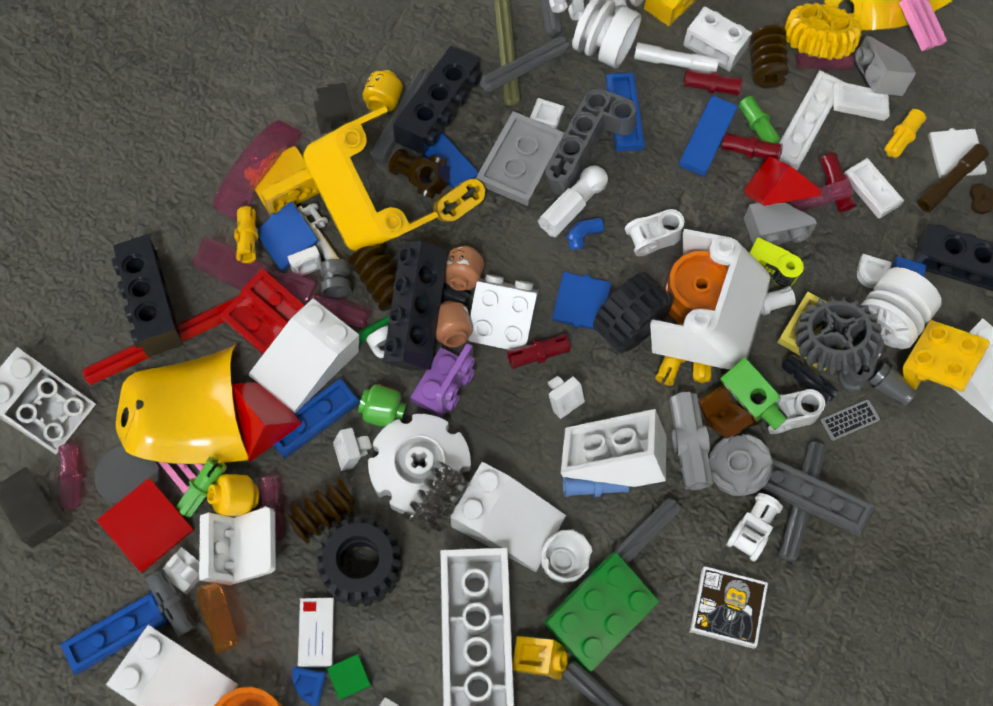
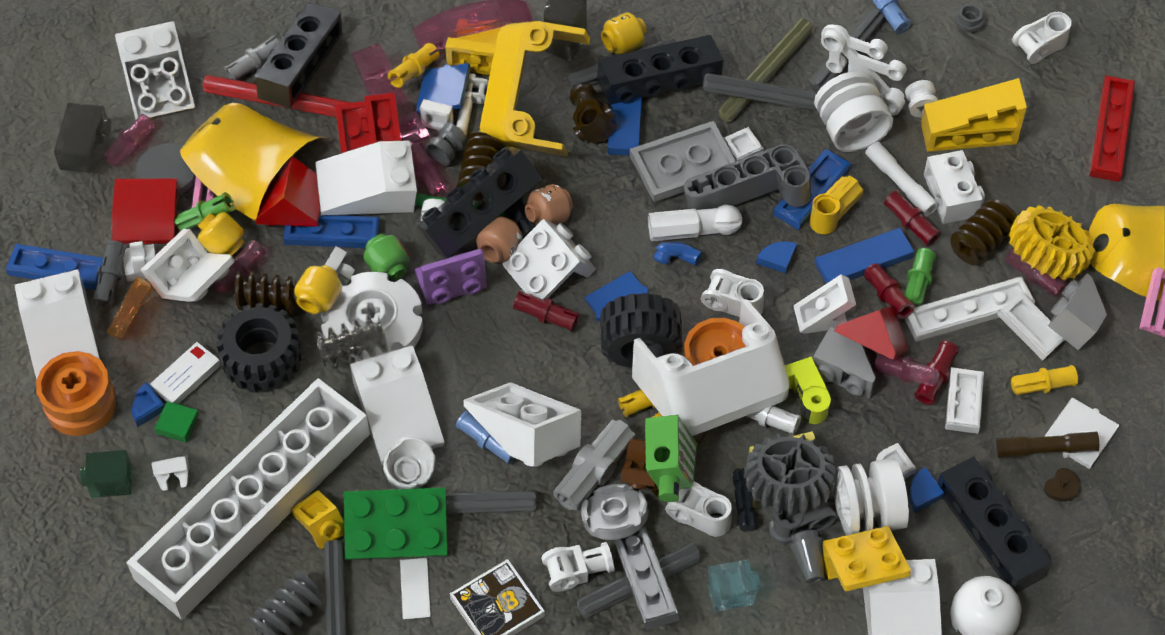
camera: 45 degrees right, 10 degrees down
(108, 326) = (251, 60): none -> light grey pin
(365, 477) = (318, 289): none -> yellow head
(462, 206) = (600, 149): yellow beam -> none
(565, 396) = (530, 357): white tile -> none
(652, 180) = (777, 256): none -> blue tile
(654, 111) = (832, 205): none -> yellow piece
(658, 647) = (415, 588): none -> white sticker
(725, 191) = (825, 306): none -> white slope
(850, 420) = (760, 560): sticker -> none
(868, 450) = (732, 585): none -> clear light blue brick

